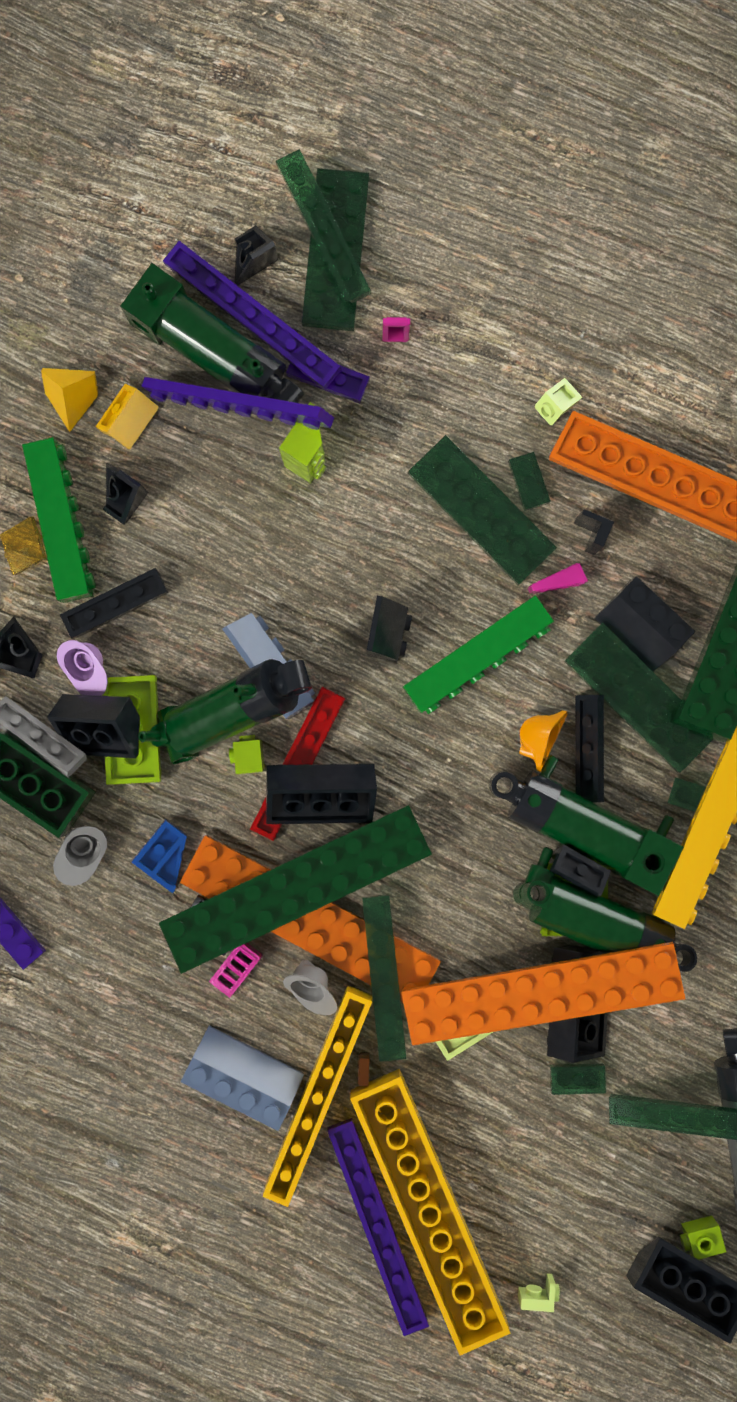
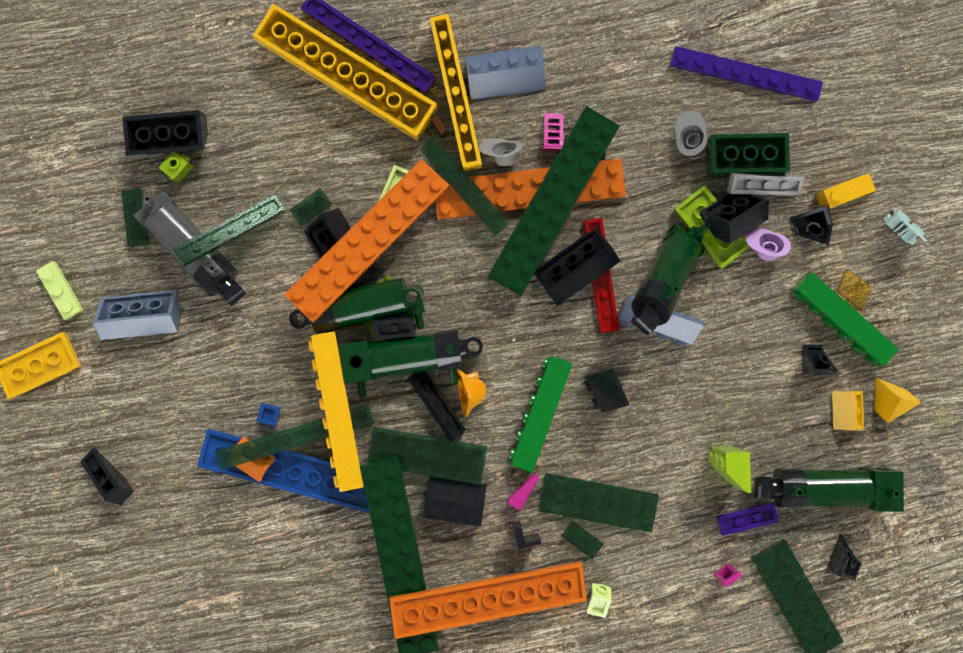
camera: 145 degrees right, 0 degrees up
(114, 603) = (775, 293): black plate -> none
(163, 855) = (642, 167): blue wing -> none
(240, 403) = (789, 463): dark purple plate -> none
(247, 755) = (634, 259): lime brick -> none
(252, 315) = (819, 523): dark purple plate -> none
(323, 227) = (815, 607): clear green plate -> none
(538, 1299) = (248, 66): yellowish green bracket -> none

